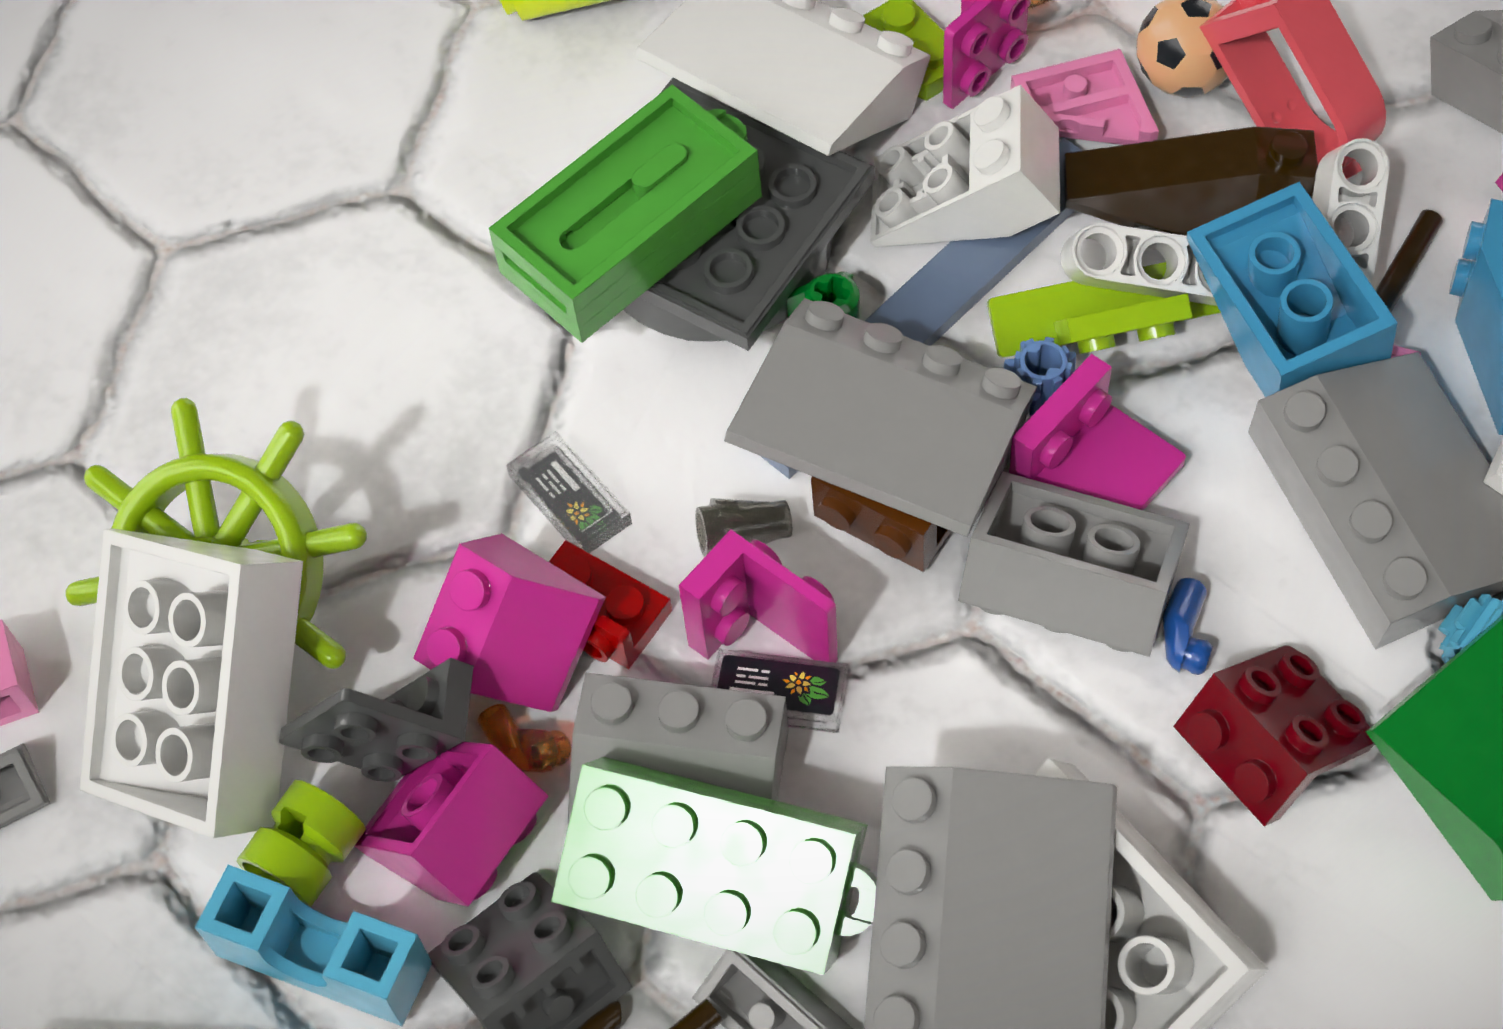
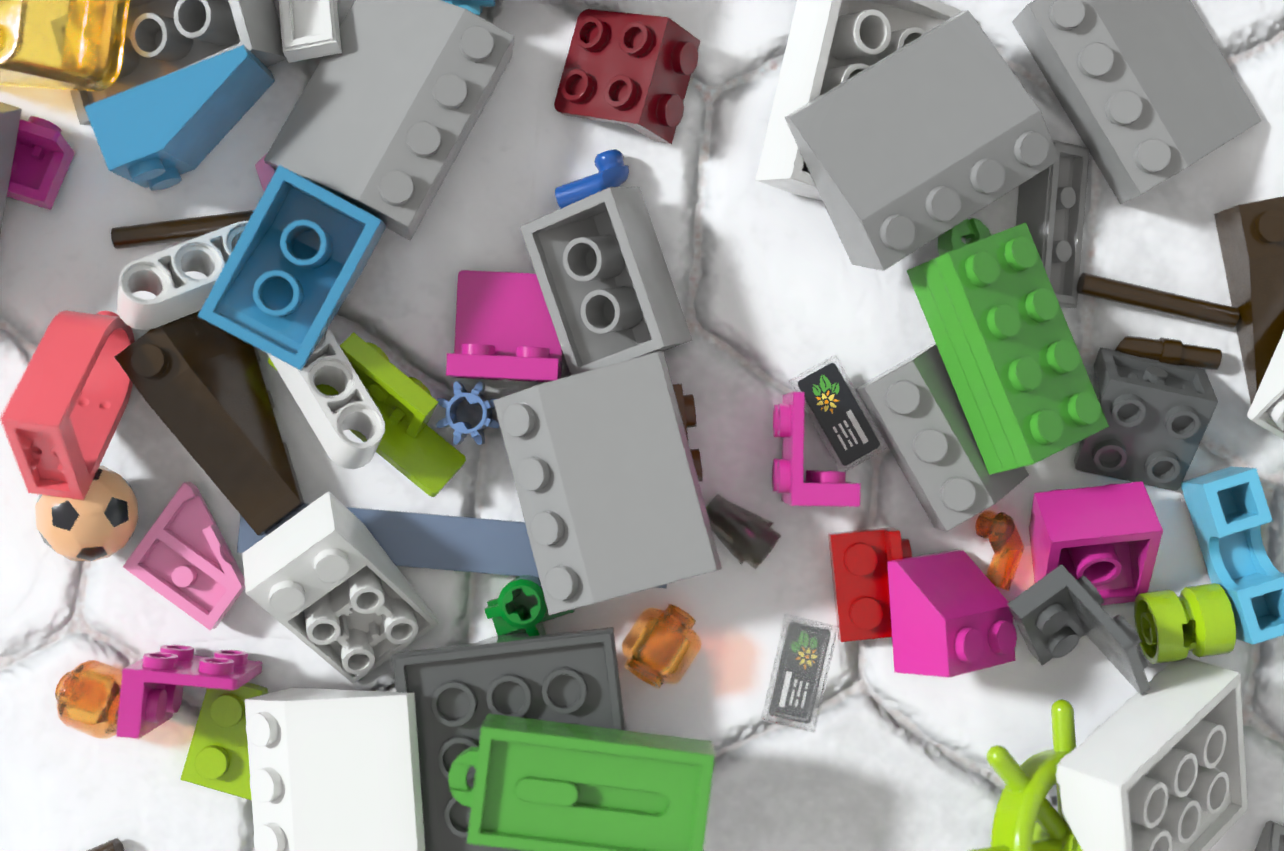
camera: 135 degrees left, 30 degrees up
(696, 390) = (661, 646): none -> clear orange head

